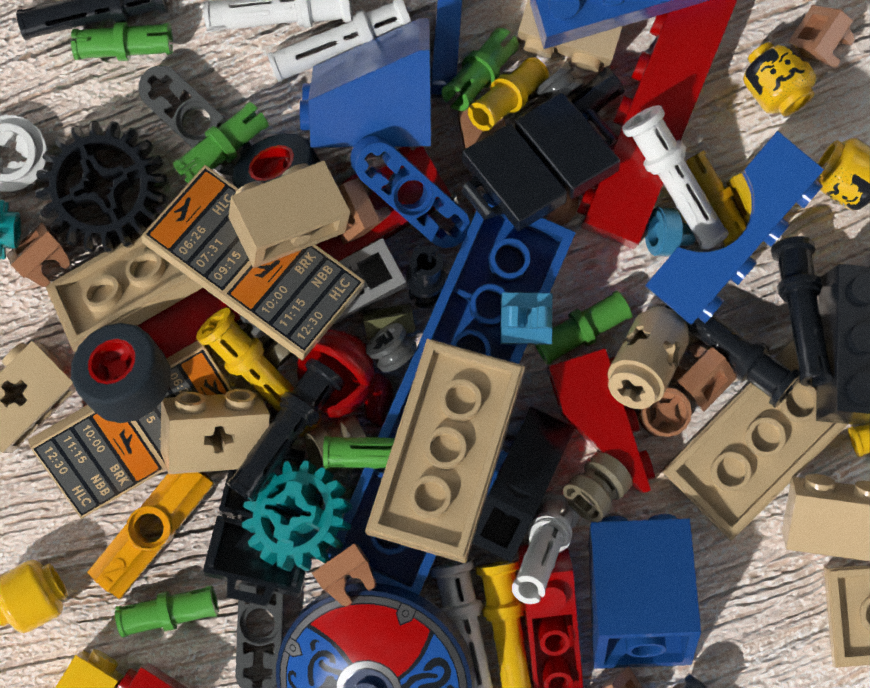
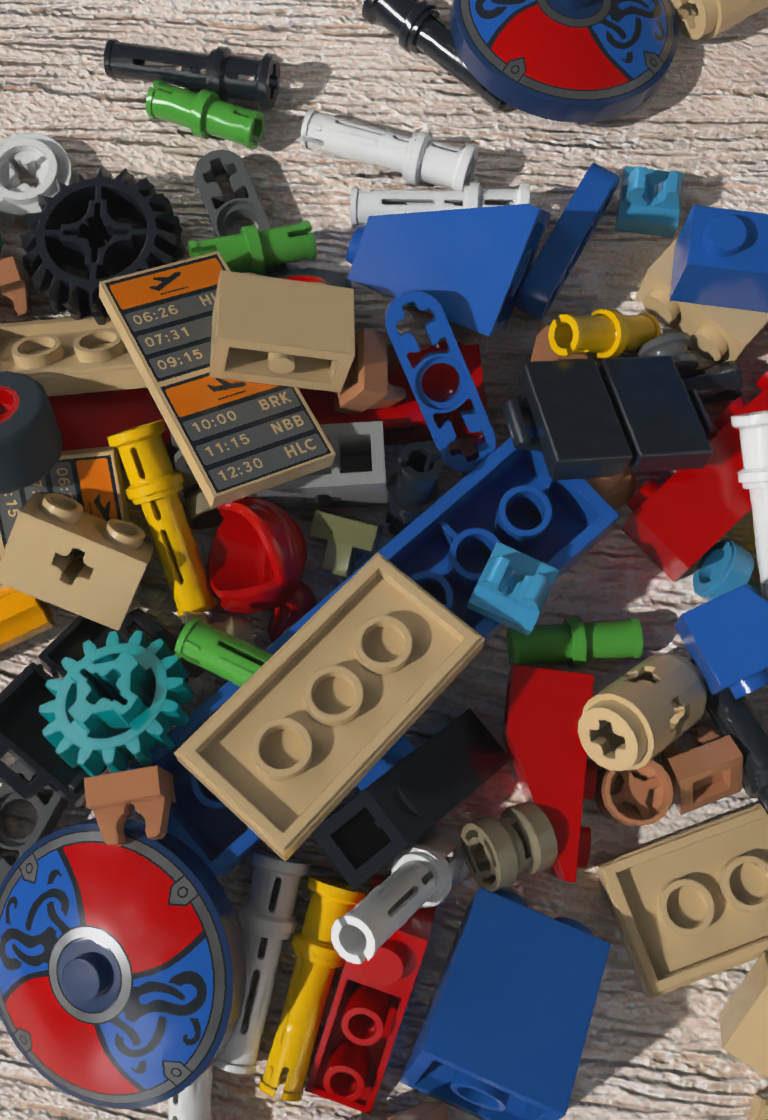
camera: 30 degrees right, 10 degrees down
(298, 410) = (185, 577): black pin -> none
(391, 347) = (331, 552): dark grey bush -> none
(480, 69) = (583, 294): bright green pin -> none

